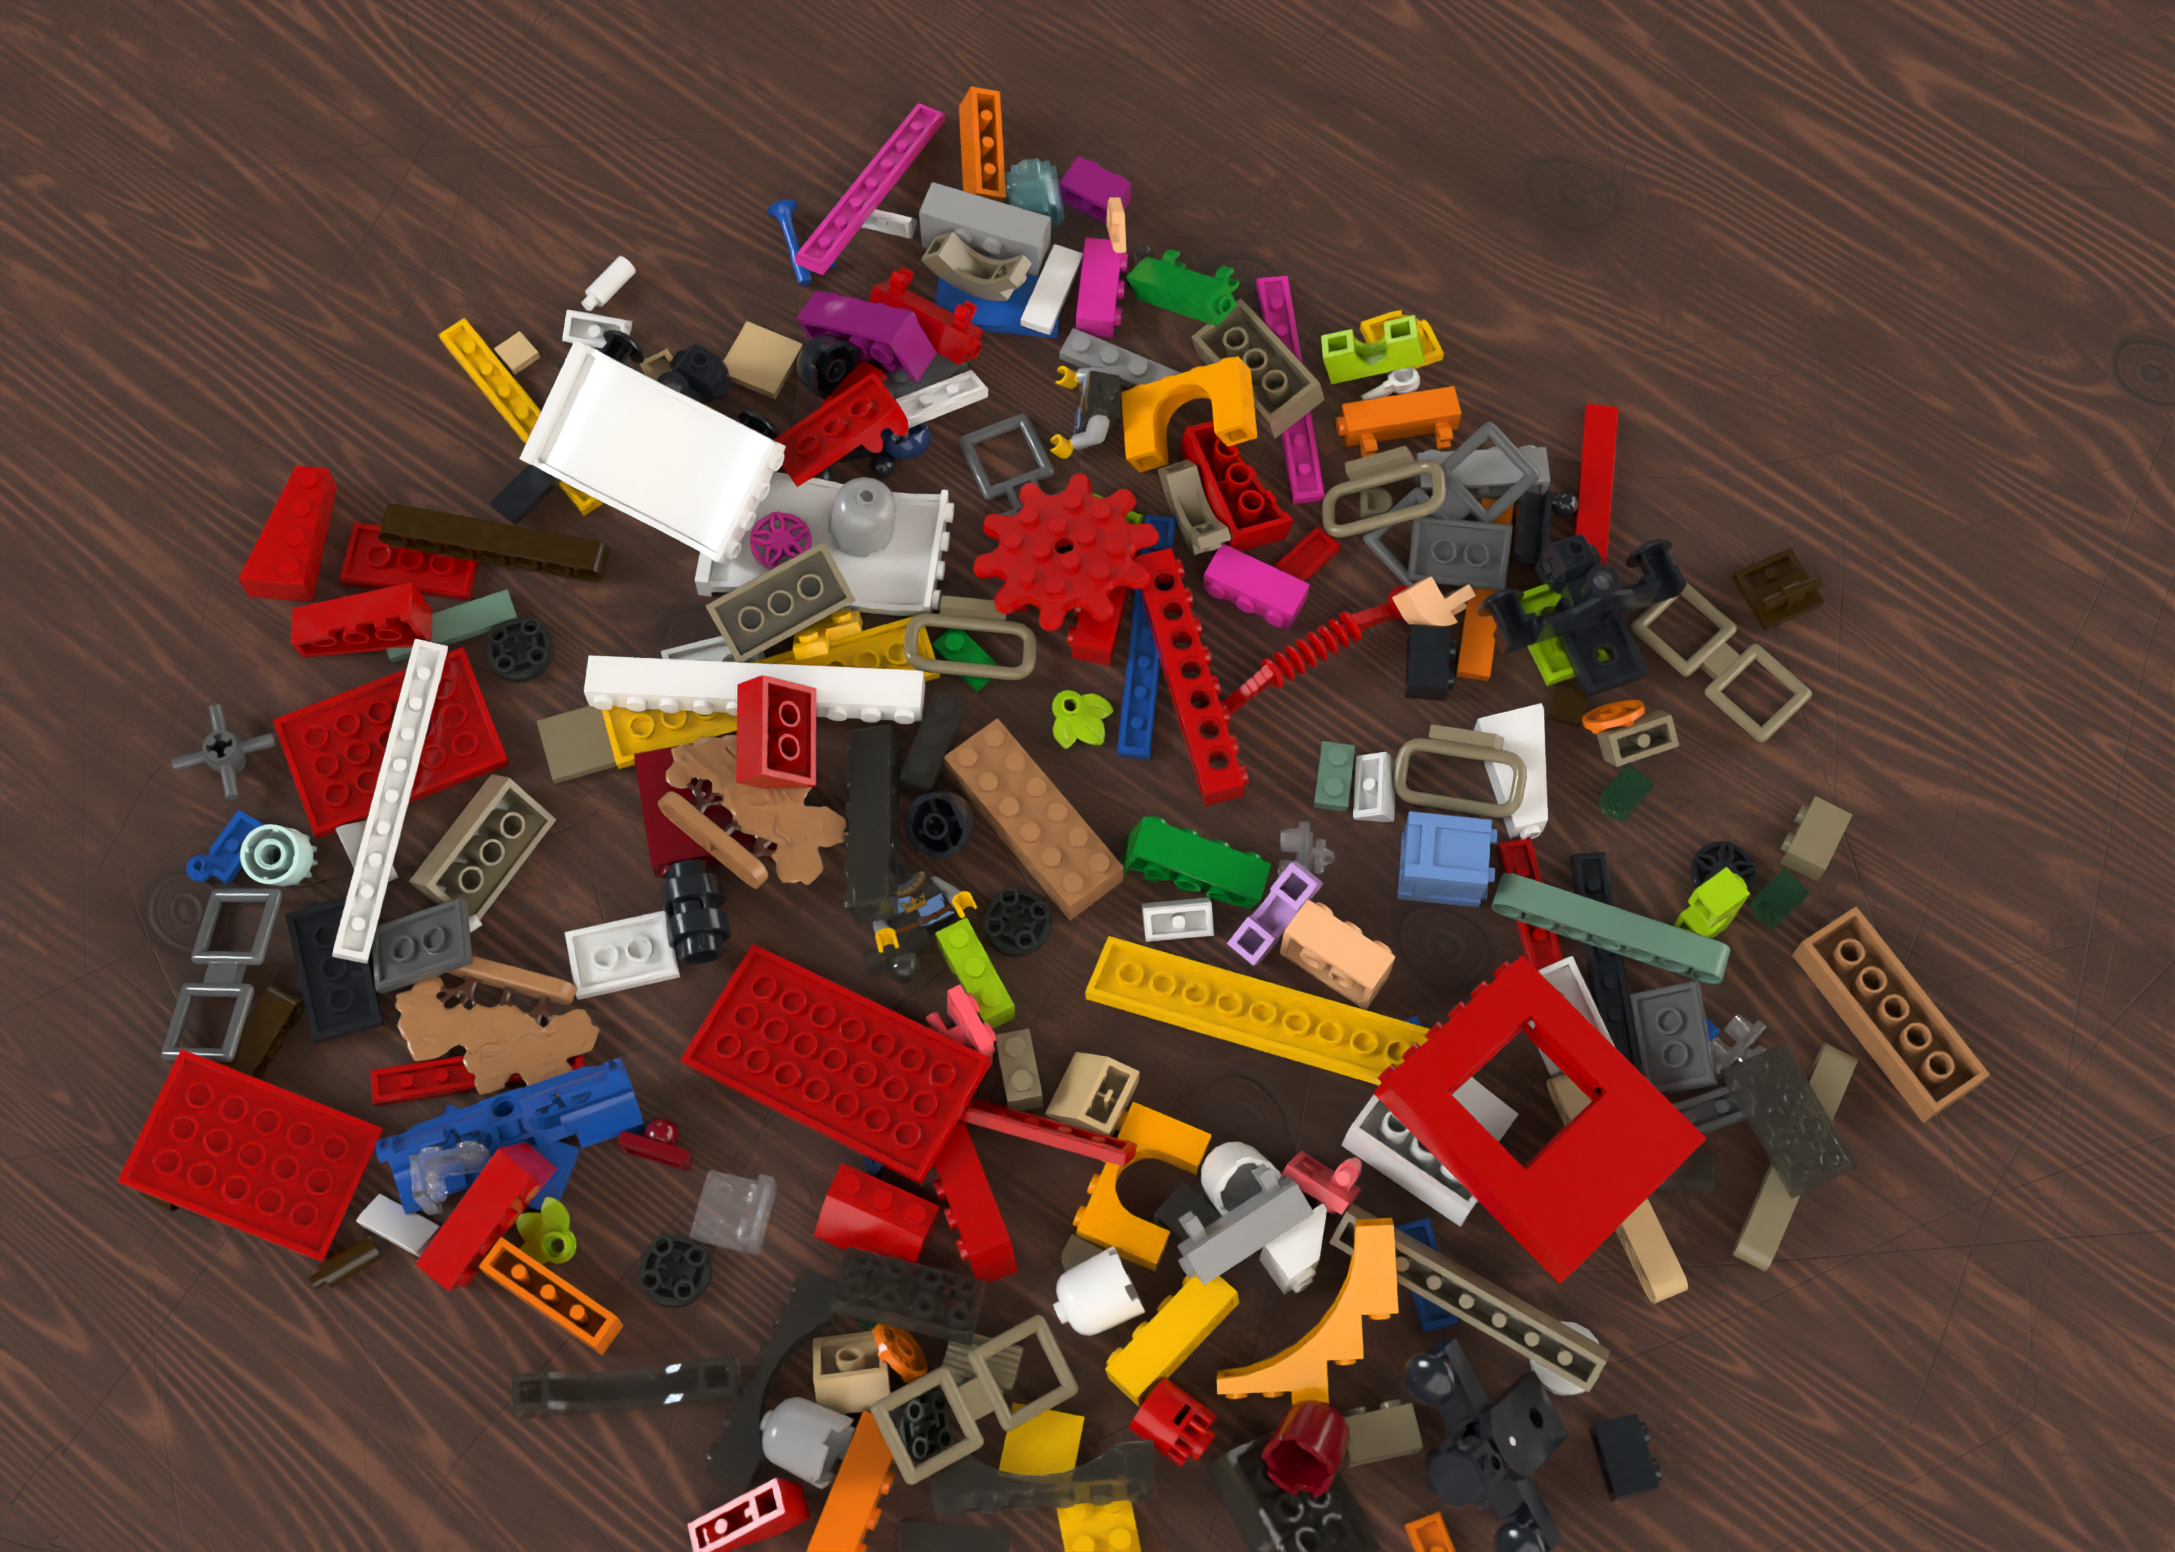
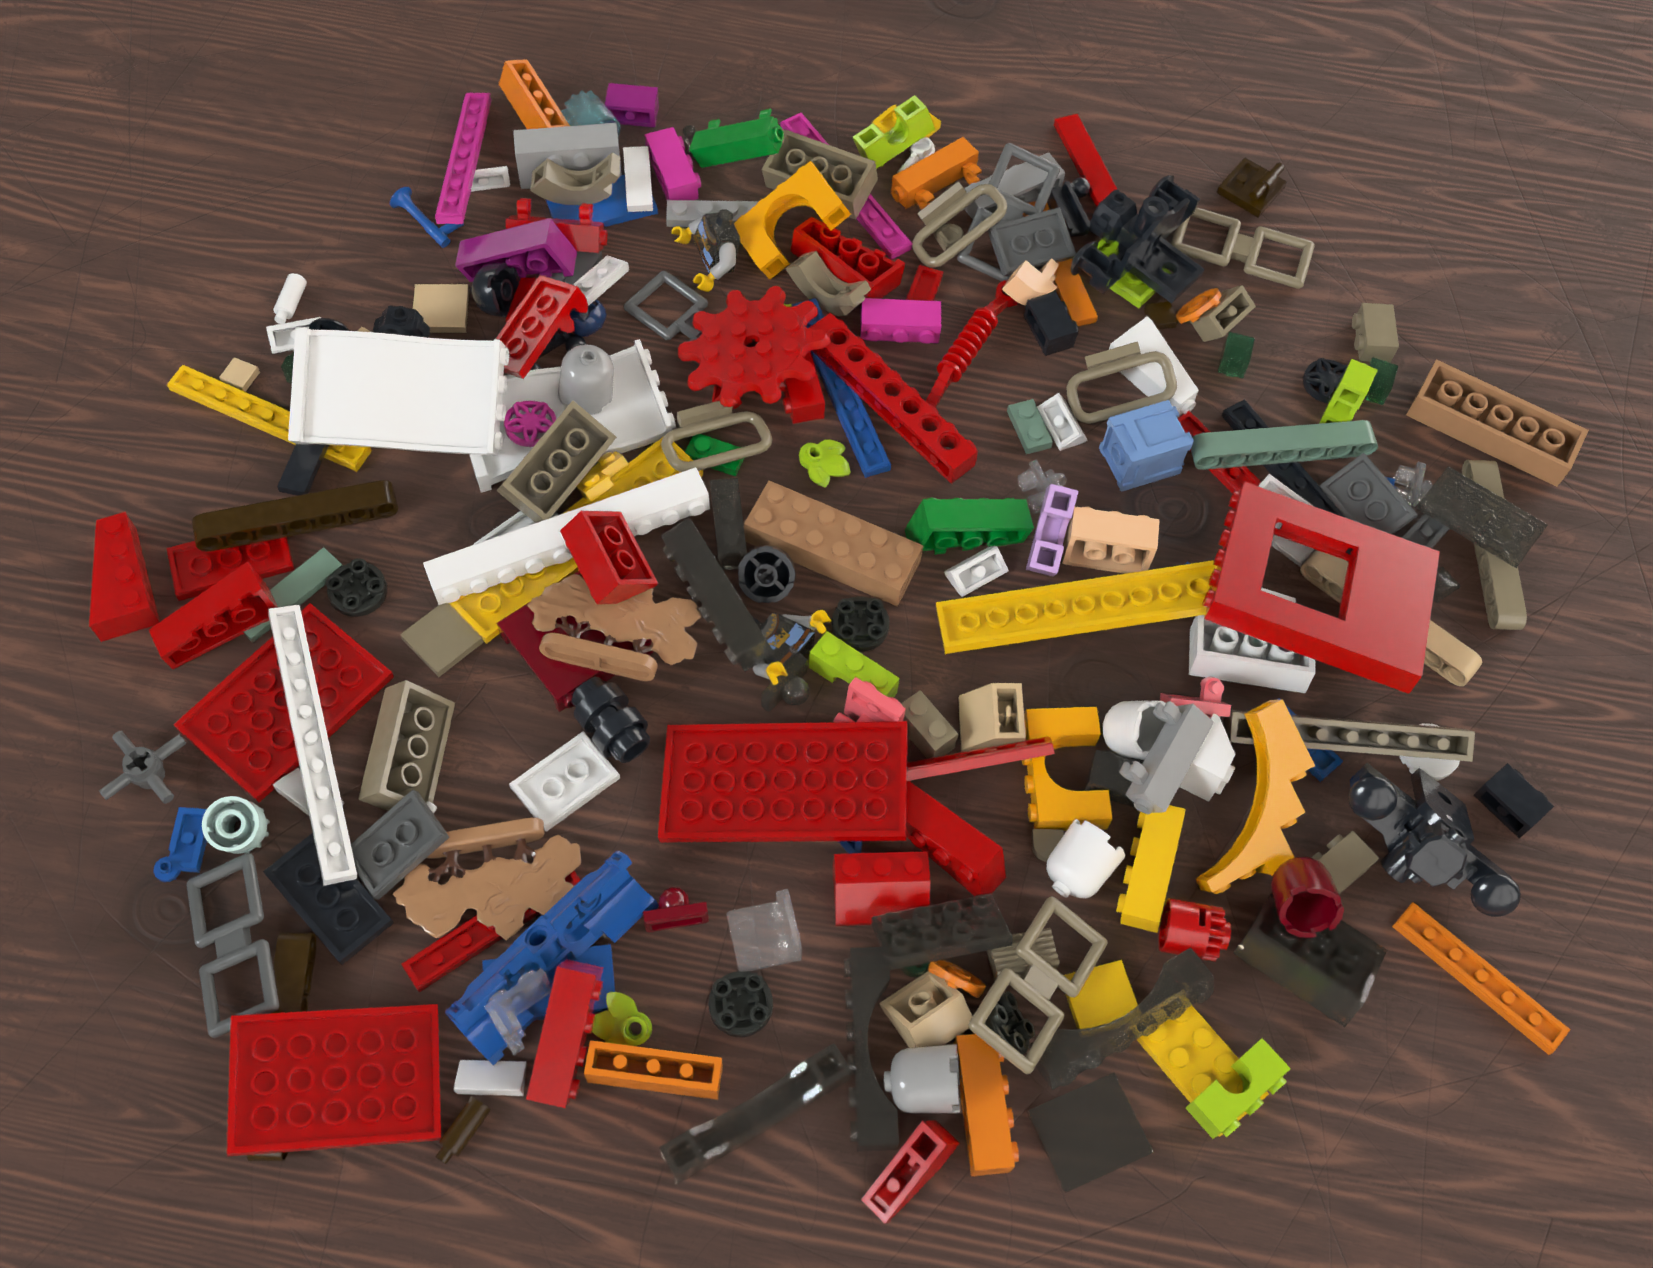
camera: 30 degrees left, 5 degrees down
(1116, 224) = (663, 115): light nougat tile -> none

